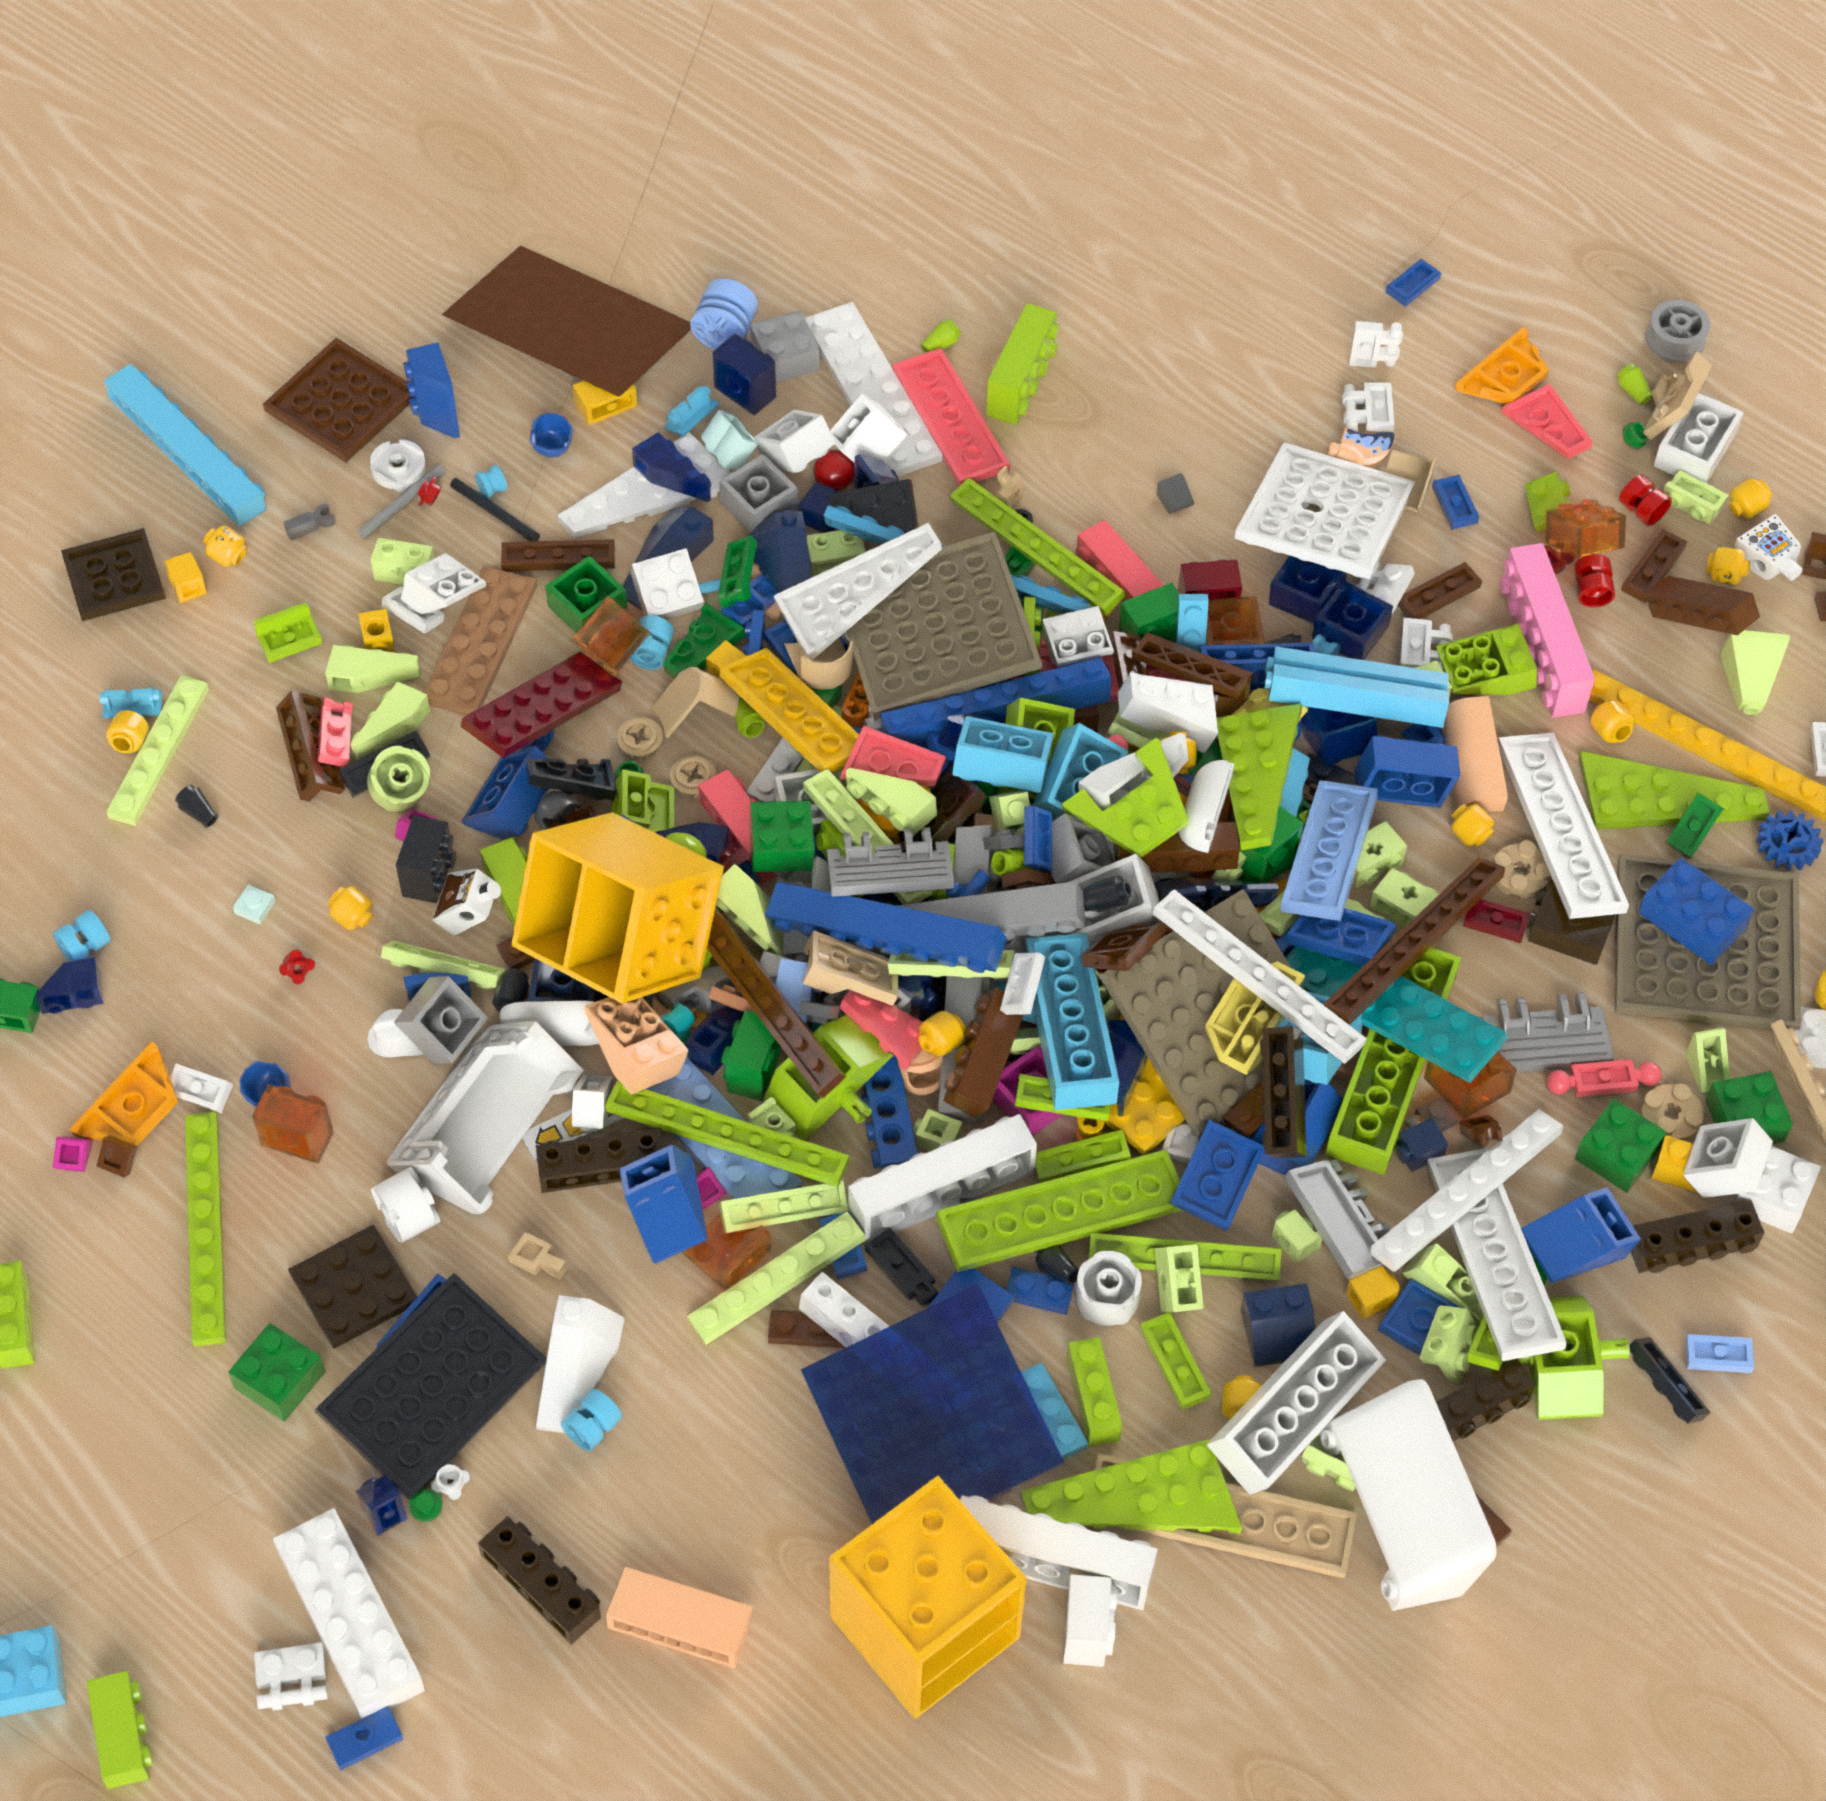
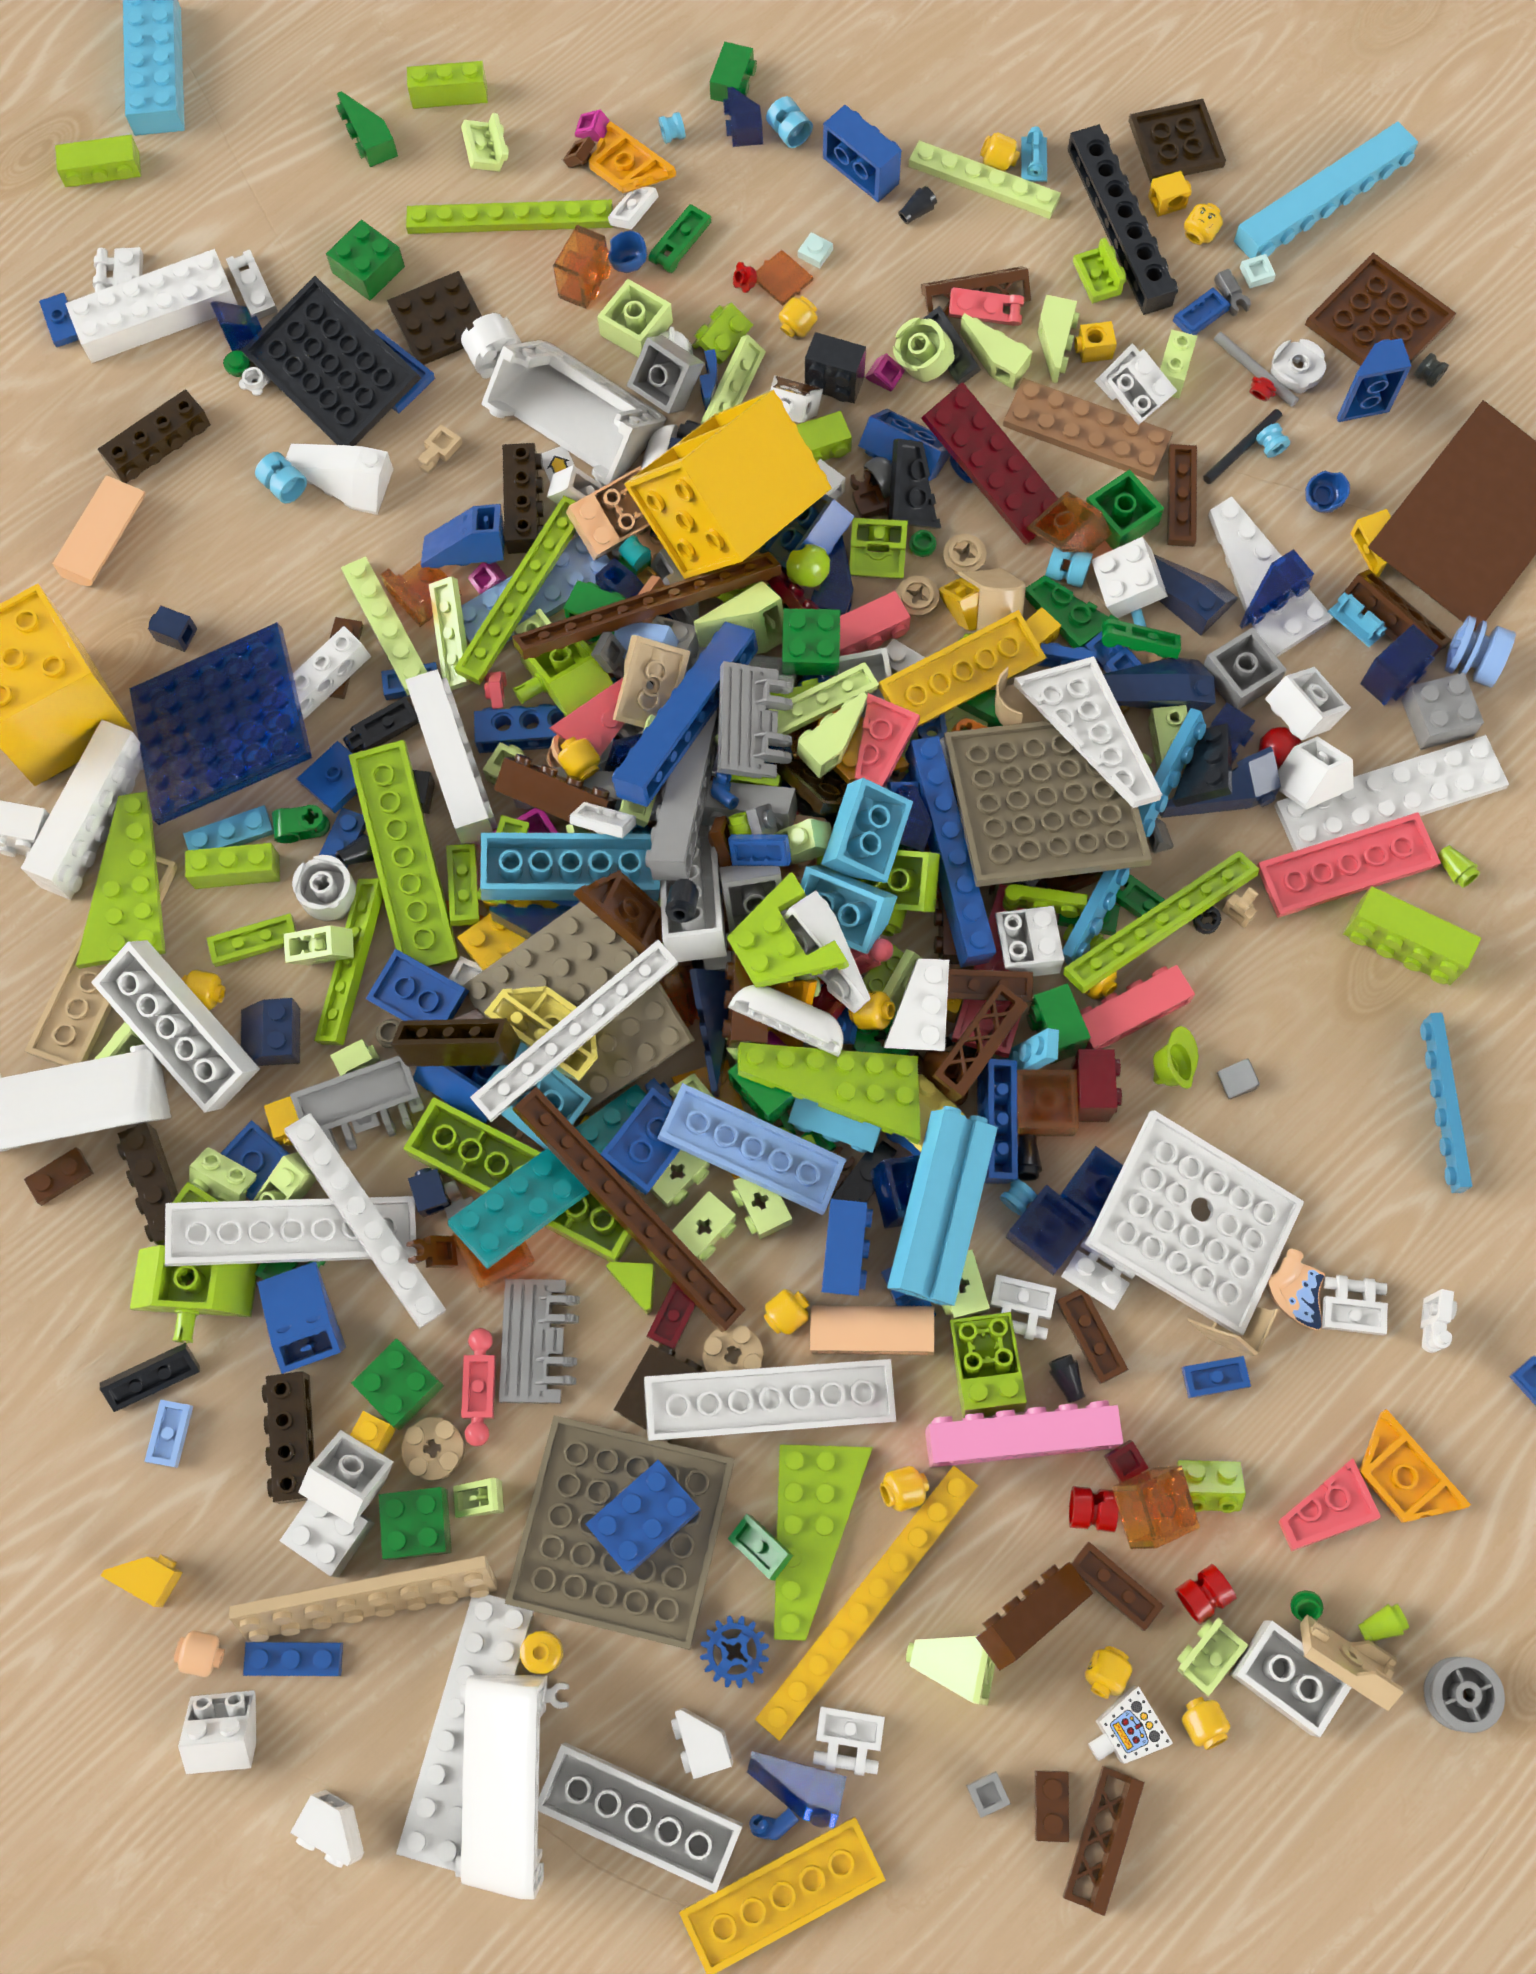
camera: 100 degrees right, 15 degrees up
(80, 1398) = (369, 129): none -> green slope
(83, 1060) = (672, 127): none -> medium azure wheel
(101, 1259) = (485, 143): none -> yellowish green bracket
(135, 855) = (861, 153): none -> blue brick
(213, 618) = (1122, 219): none -> black brick
(239, 1036) = (680, 238): none -> green plate
(283, 500) = (1257, 271): none -> light aqua plate
(288, 932) = (782, 277): none -> clear orange piece
(308, 1505) = (252, 285): none -> white plate
(335, 546) = (1202, 312): none -> blue plate
(361, 1064) = (633, 317): none -> yellowish green brick
(368, 984) = (723, 331): none -> lime bracket
(396, 358) = (1431, 370): none -> pearl dark grey wheel
(678, 385) = (1392, 609): none -> reddish brown fence
(699, 730) = (962, 602): none -> yellow slope
(728, 440) = (1314, 647): light aqua brick -> none
(801, 1512) = (172, 628): none -> dark blue brick
(854, 1144) = (494, 688): none -> coral plate
(1032, 1335) = (299, 824): none -> green piece
(1171, 344) = (1447, 1113): none -> dark azure plate
(1171, 542) = (1177, 1060): none -> lime piece
(1256, 1210) = (386, 1032): none -> dark tan plate
(1474, 949) = (636, 1280): none -> lime slope
(1480, 608) = (1067, 1376): none -> black cone

